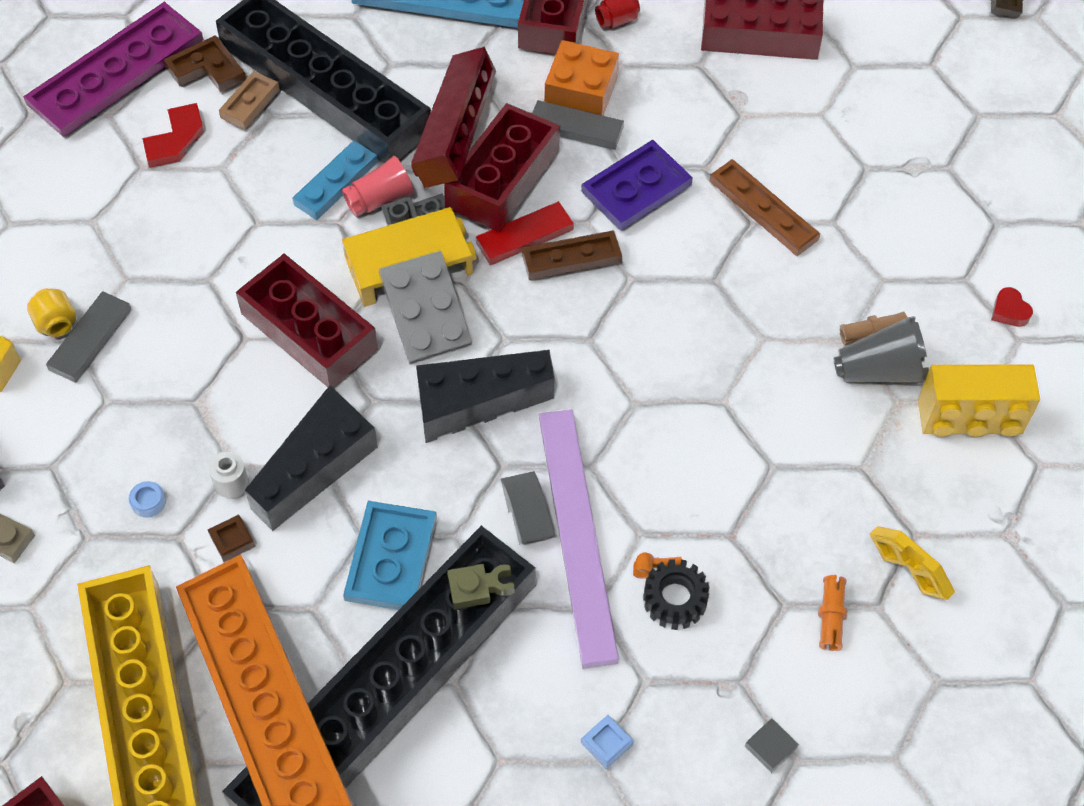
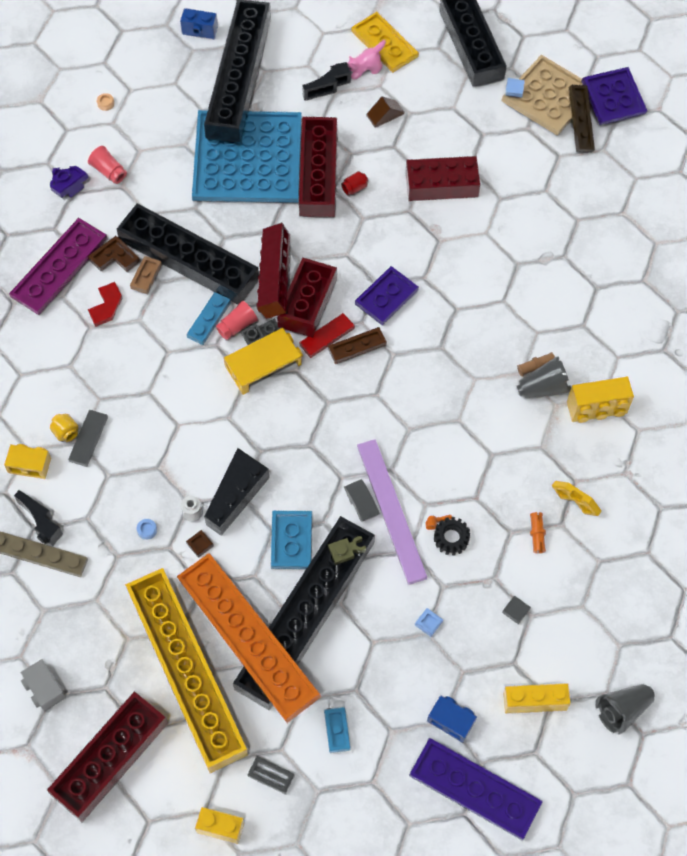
camera: 10 degrees left, 5 degrees up
(307, 320) = (214, 410): dark red brick -> none
(425, 306) = (280, 391): light grey plate -> none
(481, 388) = (321, 436): black wedge -> none
(582, 77) = (342, 233): orange brick -> none
(582, 125) = (346, 261): dark grey tile -> none
(764, 207) = (462, 298): dark orange tile -> none
(1011, 309) = (611, 339): red tile -> none

